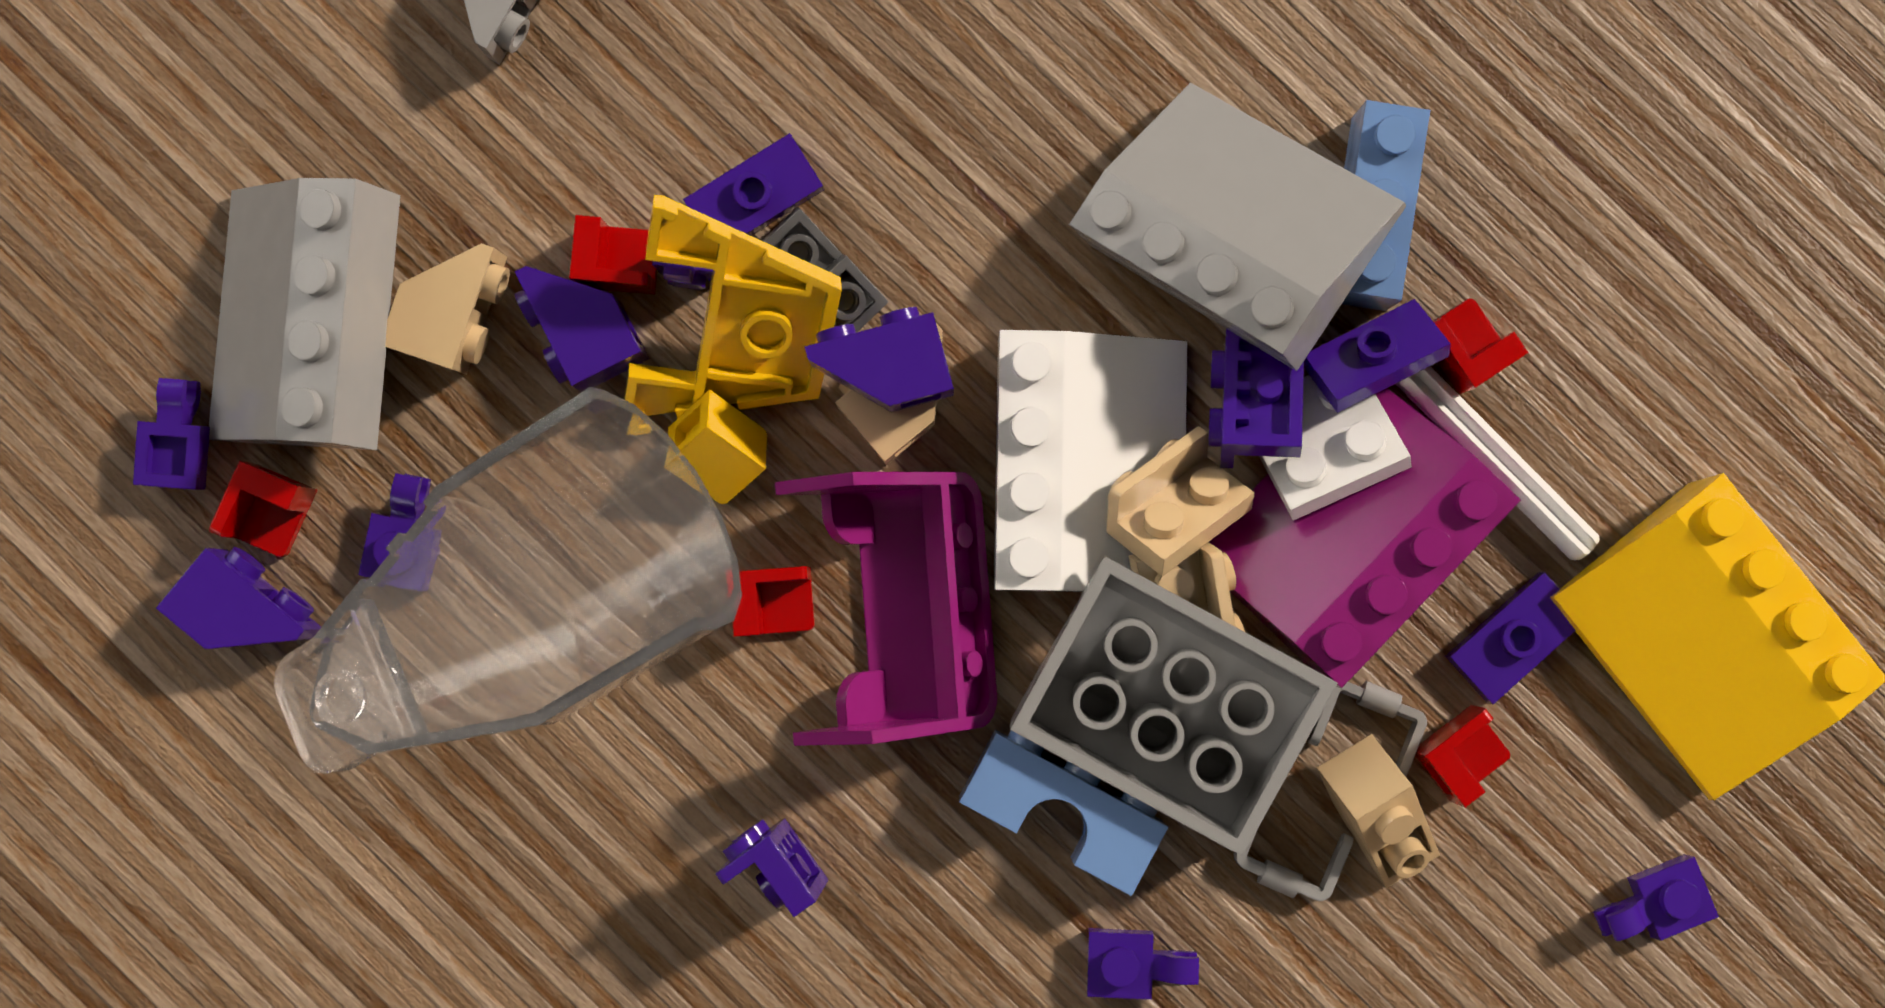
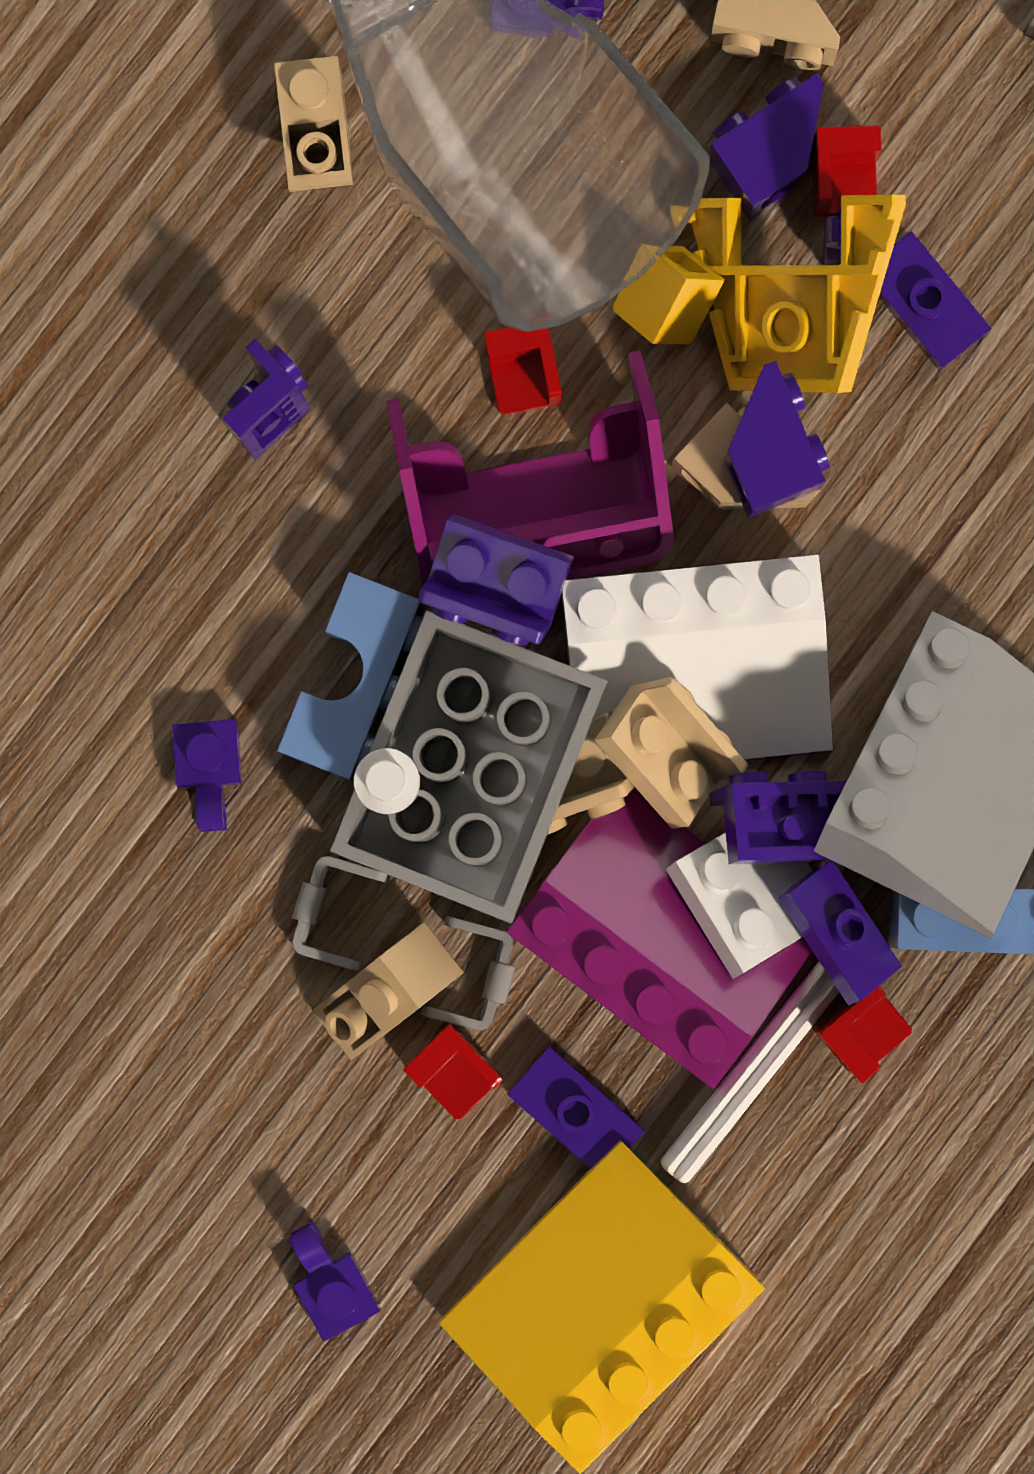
camera: 80 degrees right, 0 degrees up
(499, 782) = (314, 123): none -> tan slope
(803, 239) = (883, 355): flat silver slope -> none
(989, 656) = (495, 581): none -> dark purple bracket
(1182, 791) = (387, 781): none -> white plate

